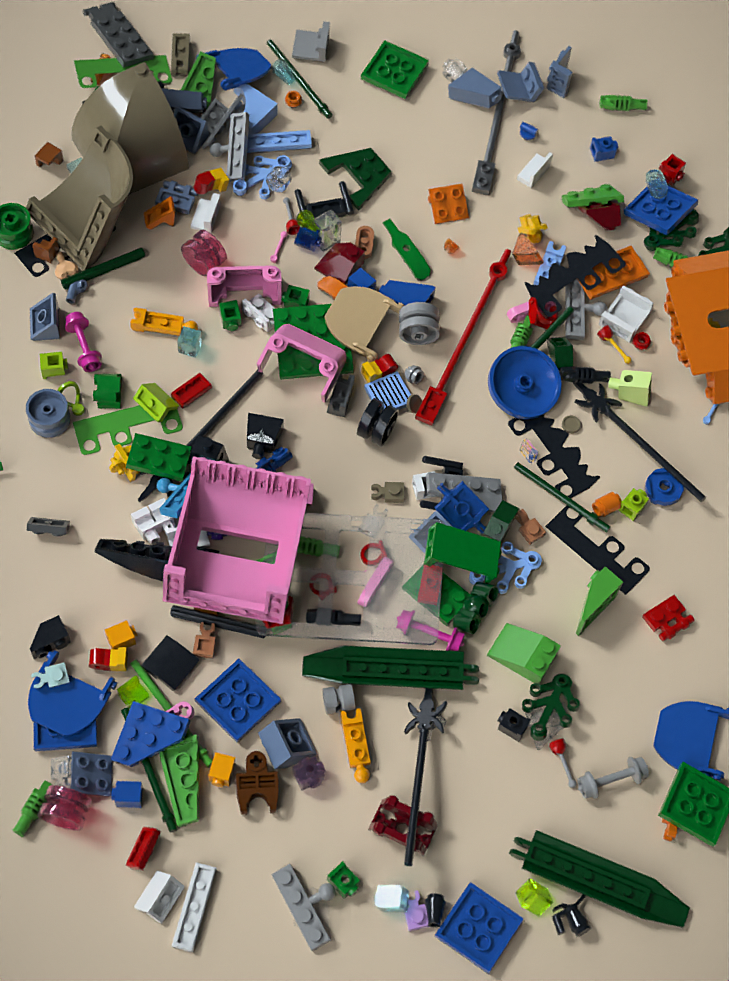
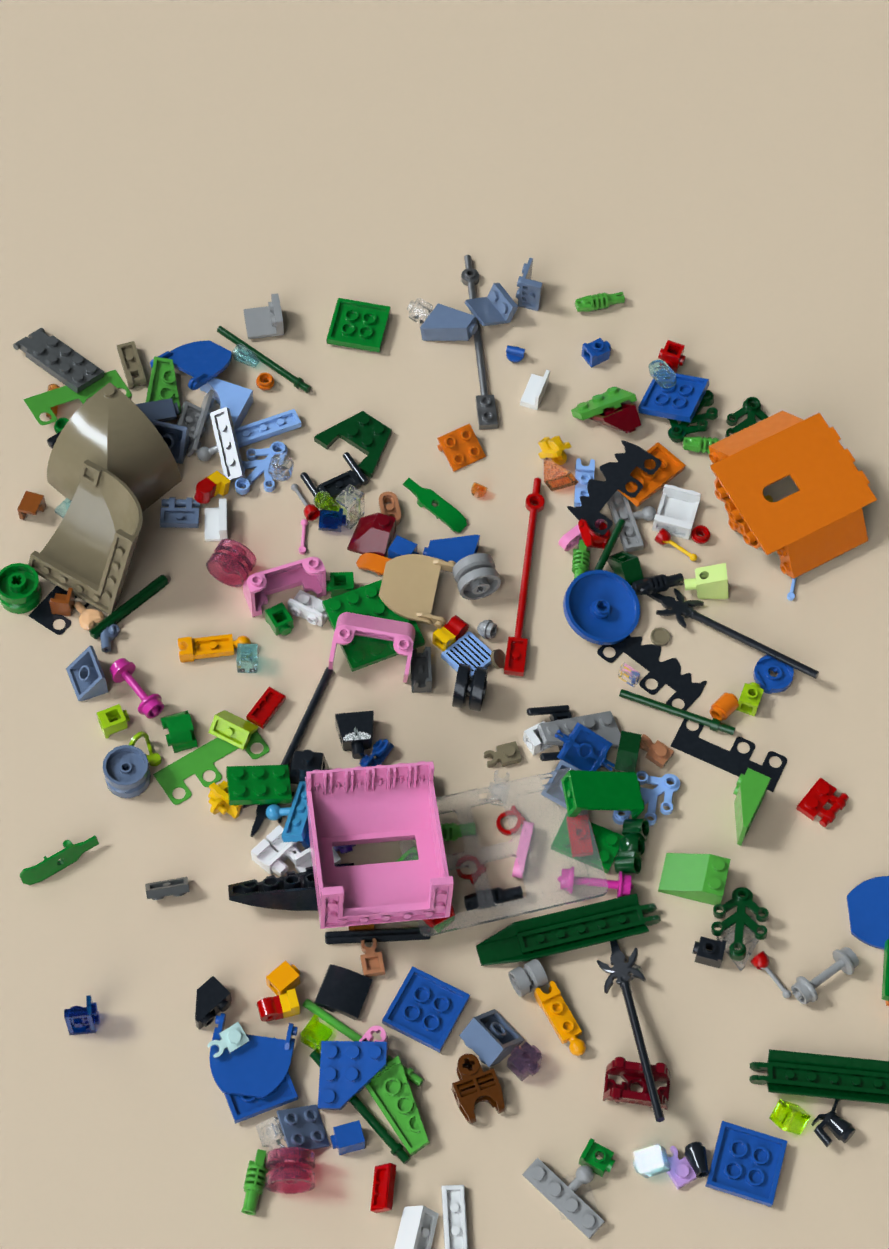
camera: 15 degrees left, 5 degrees down
(160, 213) = (171, 533): orange slope -> none
(221, 770) = (435, 1084): light orange brick -> none

